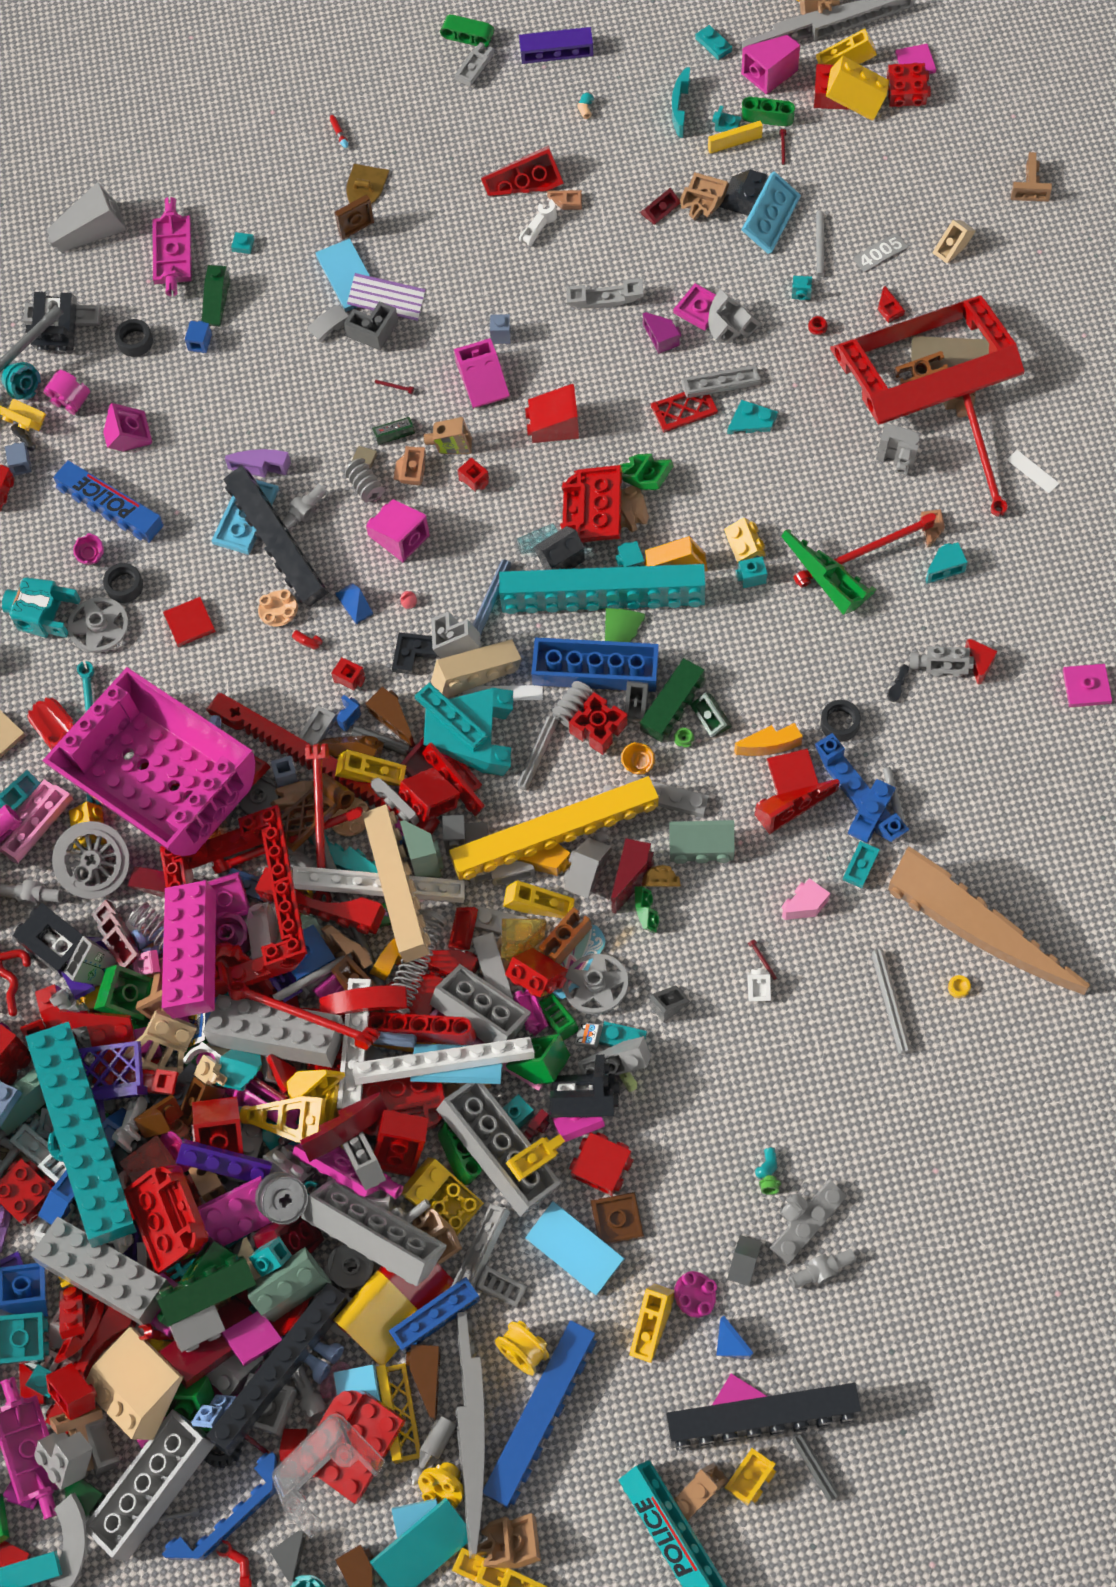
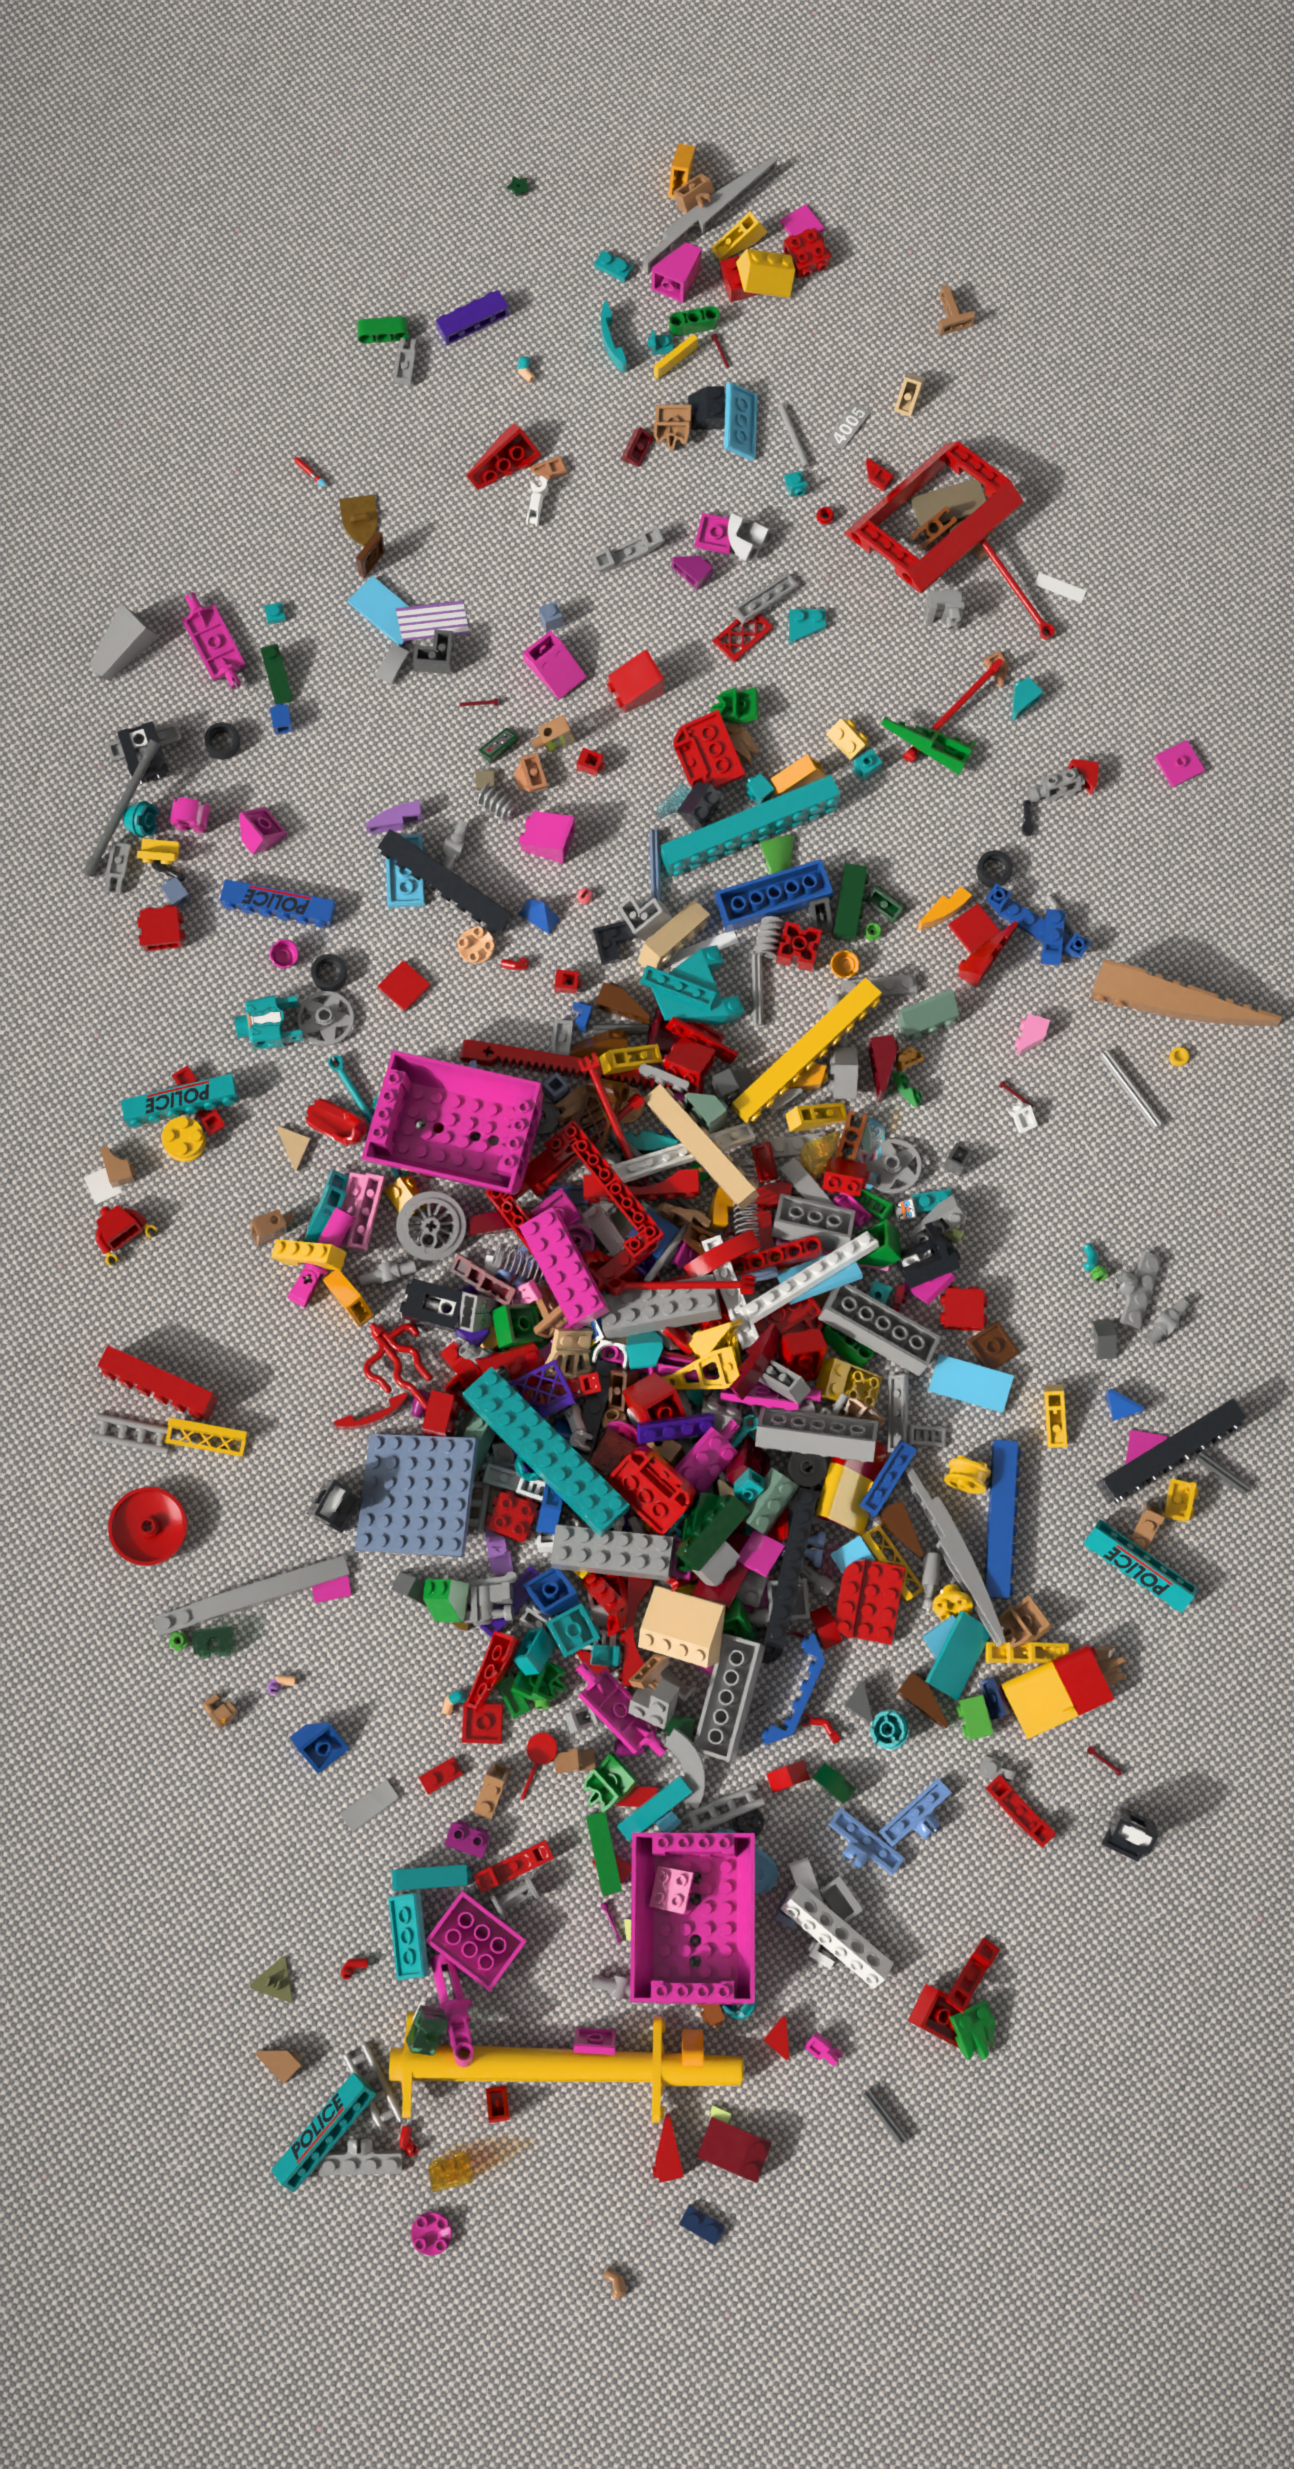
camera: 30 degrees left, 10 degrees up
(71, 1391) = (637, 1653): red brick -> none
(158, 1117) = (599, 1414): reddish brown slope -> none
(208, 1071) = (622, 1361): tan plate -> none
(210, 1414) = (757, 1620): light blue slope -> none
(281, 1197) = (737, 1437): flat silver wheel -> none
(330, 1440) = (848, 1623): clear windscreen -> none
(534, 1156) = (914, 1325): yellow hinge -> none
(695, 1294) = (1079, 1380): dark pink dish -> none
(861, 864) = (1062, 985): teal plate -> none

